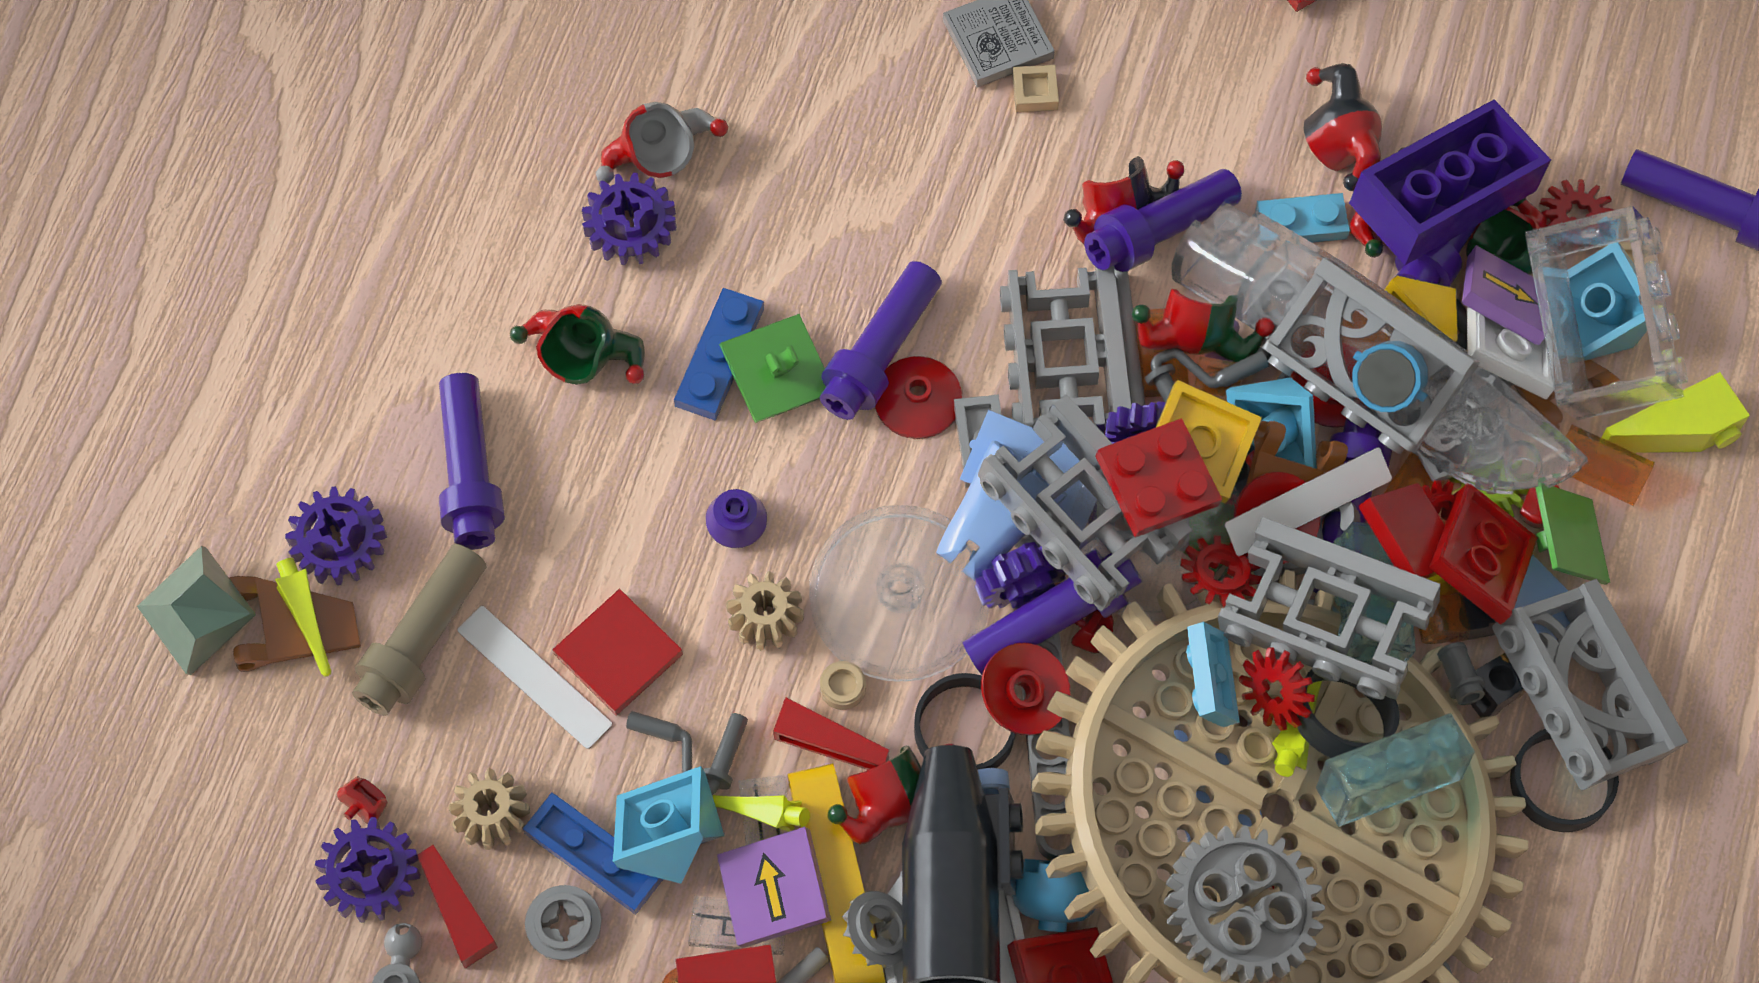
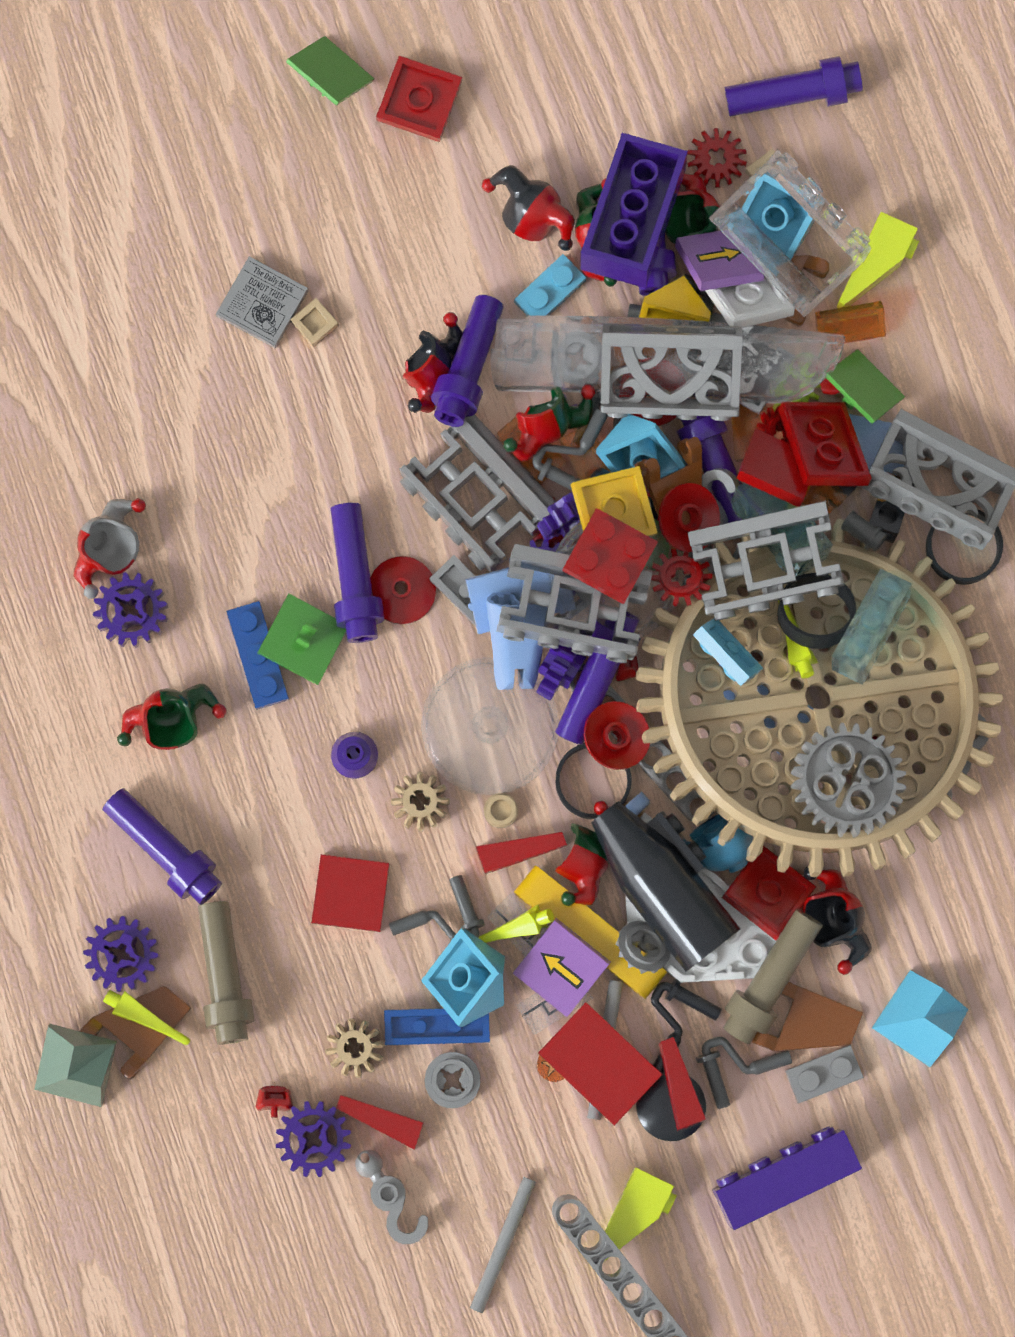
camera: 35 degrees left, 15 degrees up
(534, 677) = (311, 946): white sticker -> none
(1293, 688) = (761, 622): red gear -> none
(1312, 498) = (701, 491): white sticker -> none
(1390, 376) = (696, 380): piece -> none

